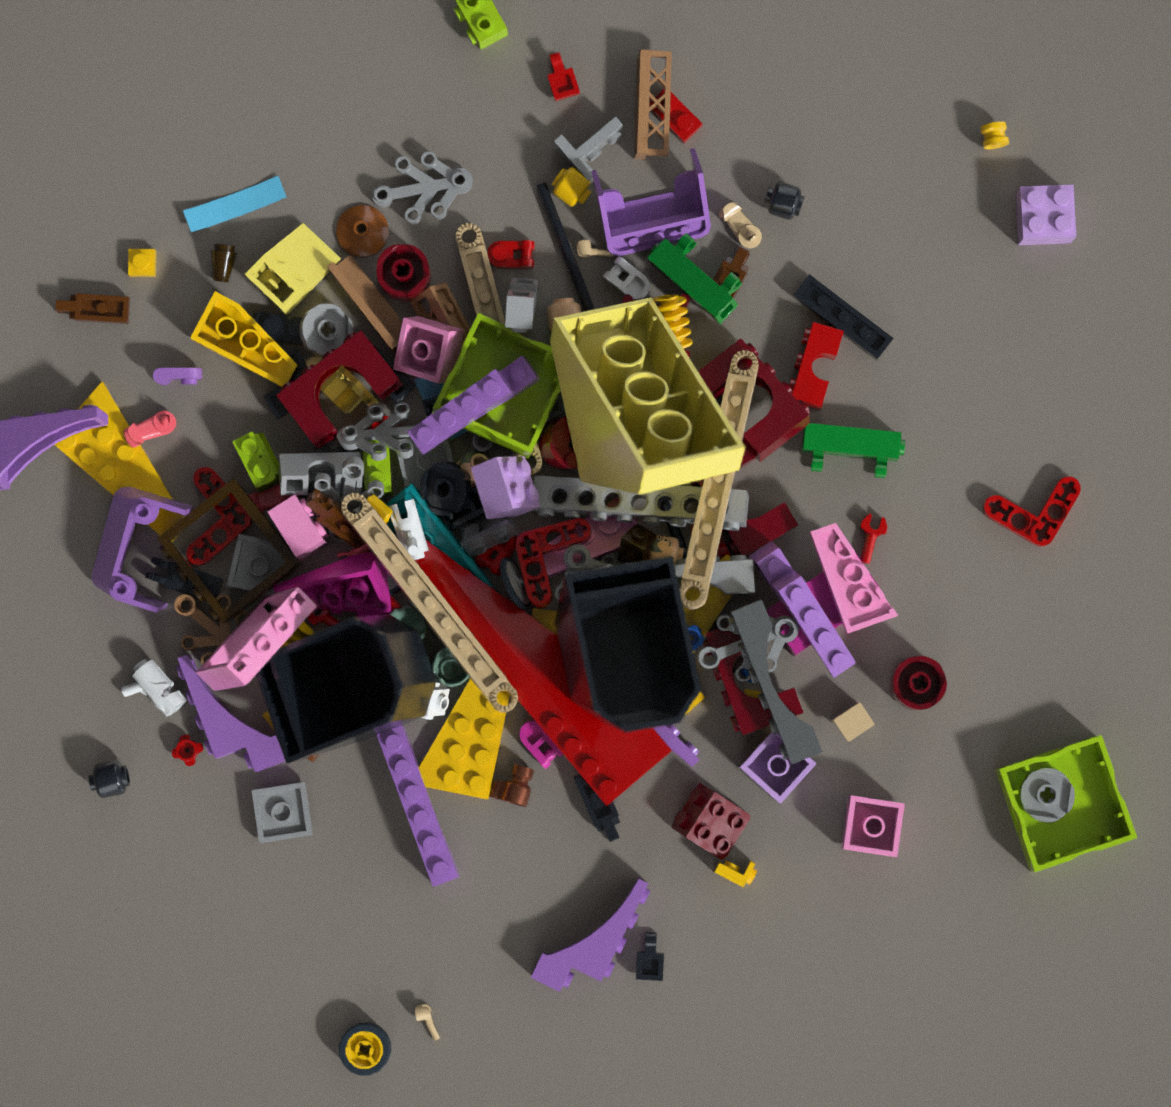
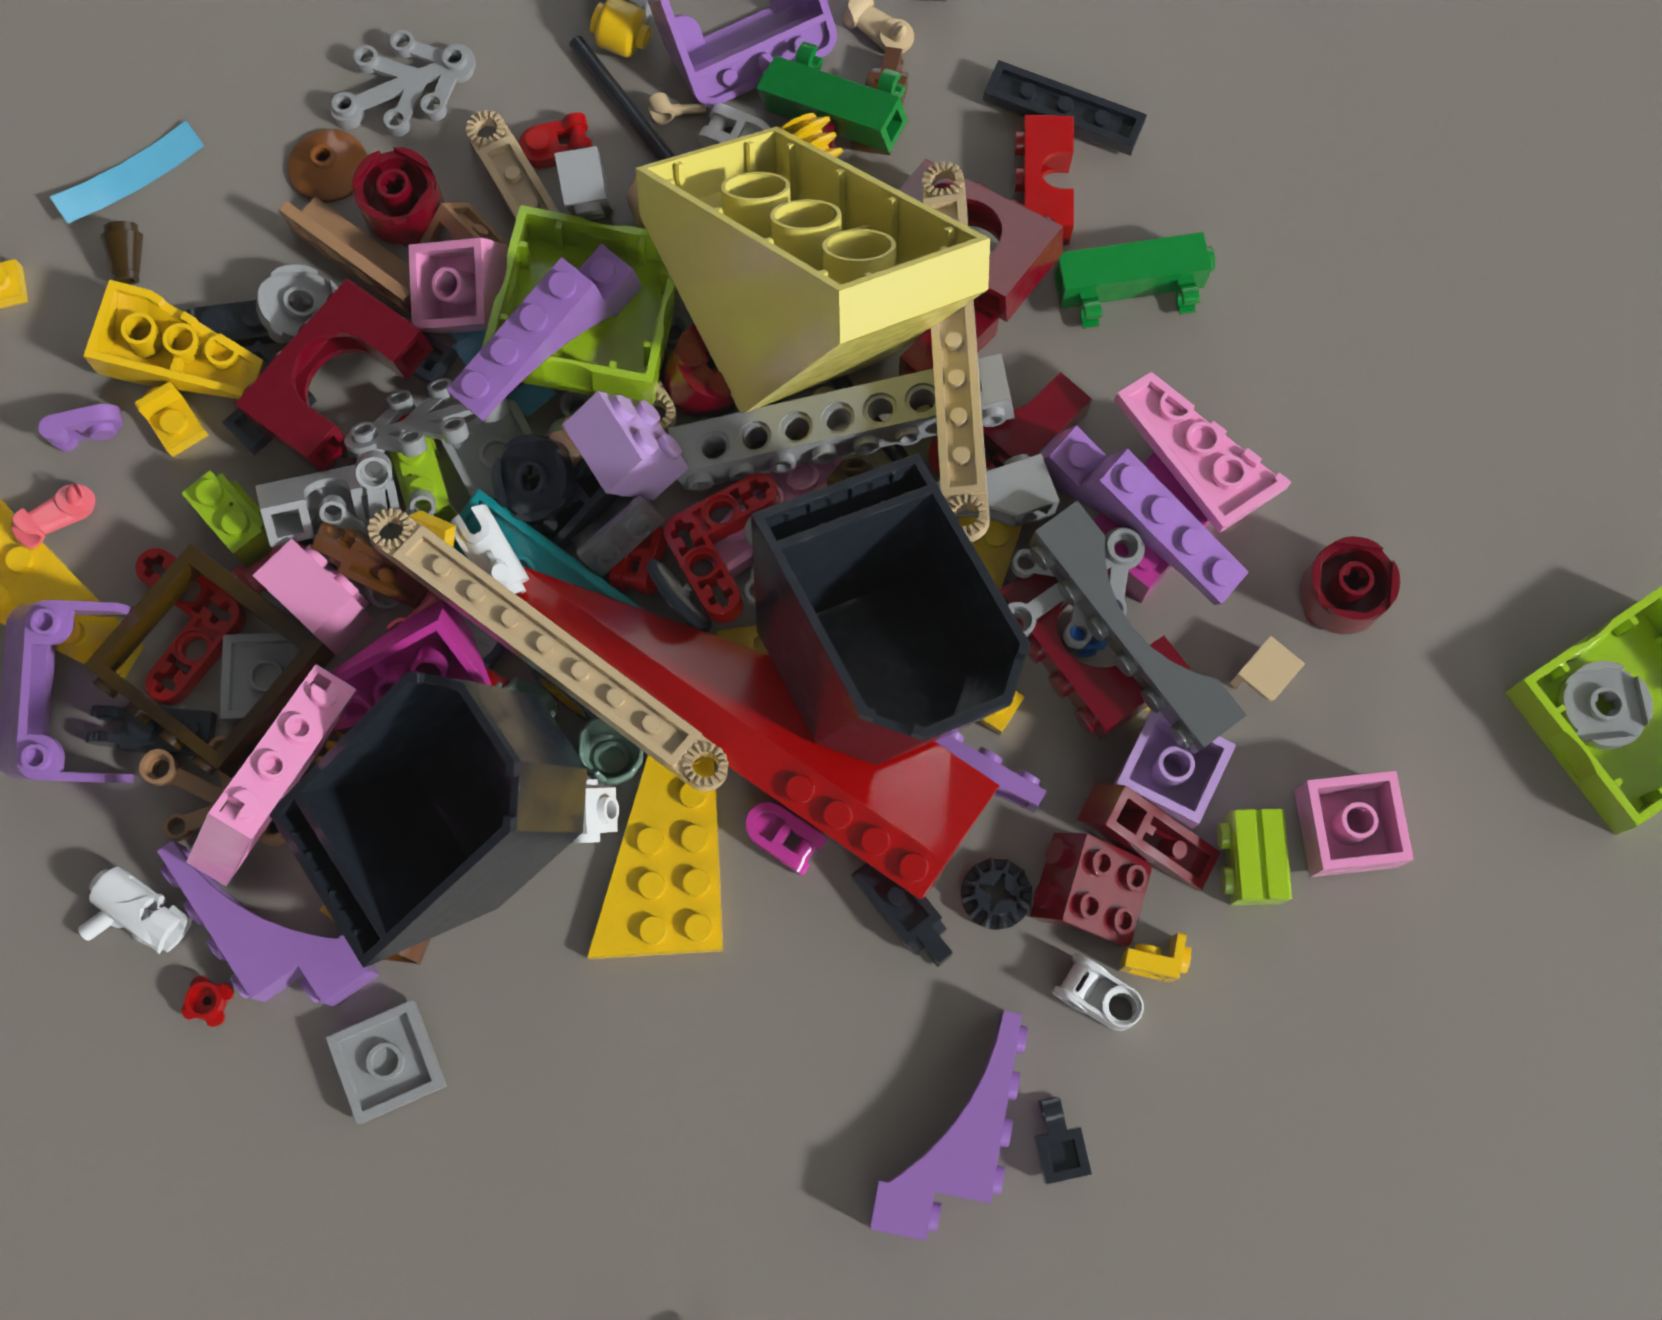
camera: 20 degrees left, 10 degrees down
(109, 779) = (81, 1082): black head -> none
(232, 383) = (171, 418): none -> yellow bracket
(292, 268) = (225, 236): light yellow slope -> none
(347, 391) = (347, 376): clear yellow panel -> none
(418, 805) = (609, 990): medium lavender arch -> none
(517, 789) = (763, 924): copper piece -> none
(653, 796) = (1006, 912): none -> black gear
(695, 881) = (1096, 993): none -> white piece
(753, 799) = (1147, 832): none -> dark red slope
(810, 829) = (1255, 857): none -> lime brick
(871, 535) = (1203, 392): red bar -> none
(1032, 522) = (1434, 317): red beam -> none

